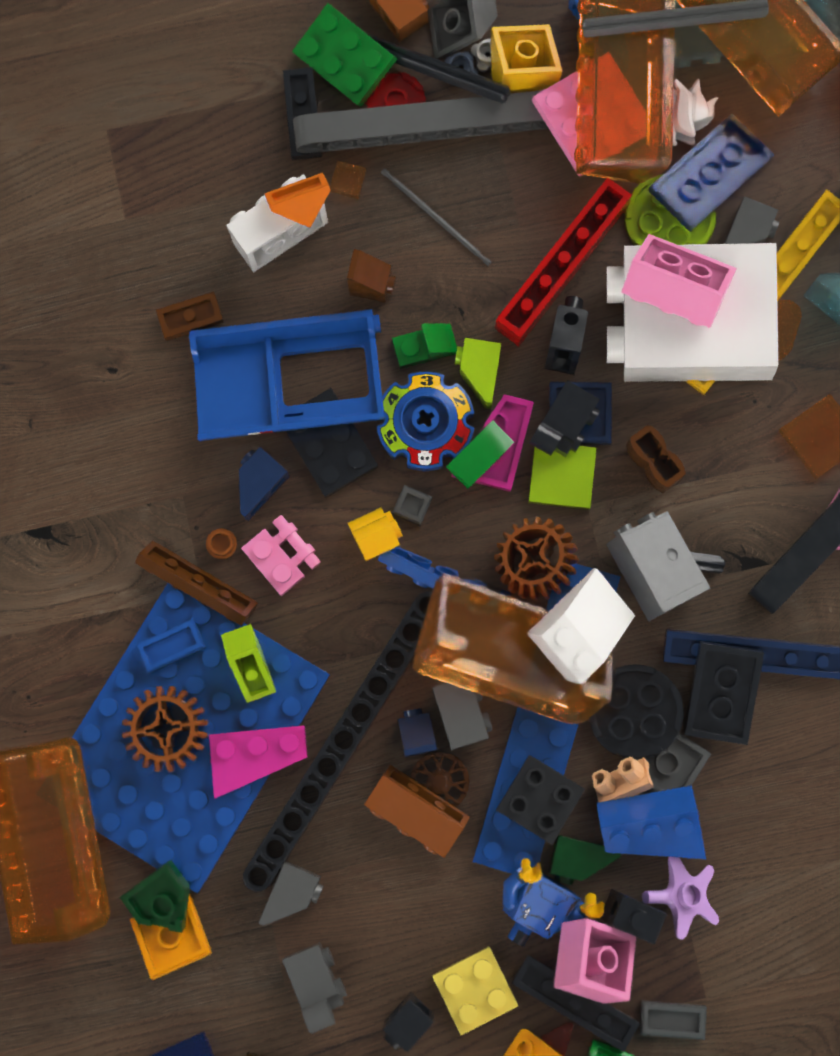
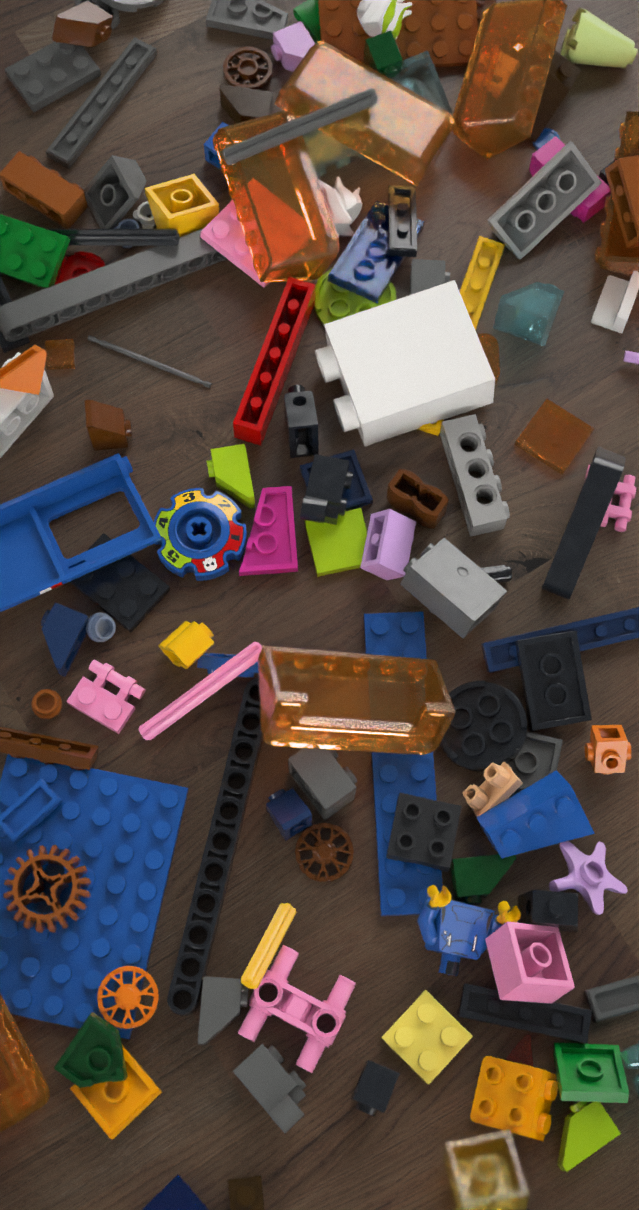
camera: 25 degrees left, 10 degrees down
(208, 856) = (128, 997): none -> orange wheel
(248, 663) = (108, 800): lime slope -> none
(253, 754) = (139, 885): dark pink wing -> none
(297, 484) = (100, 627): none -> sand blue plate
(355, 854) = (268, 946): none -> yellow axle
(362, 922) = (297, 1009): none -> bright pink piece
(374, 586) = (201, 691): none -> bright pink axle
(412, 505) = (213, 612): dark grey tile -> none
(416, 811) = (312, 885): dark orange brick -> none
(425, 345) = (176, 471): green slope -> none
(480, 454) = (259, 544): green slope -> none
(543, 548) = (335, 604): dark orange gear -> none
(583, 627) = (406, 659): white slope -> none
(609, 497) = (388, 544): none -> lavender brick
(678, 280) = (381, 335): bright pink slope -> none
(711, 497) = (478, 517): none -> light grey brick
(749, 148) = (402, 221): none -> tile
(749, 786) = (608, 749): none -> orange brick

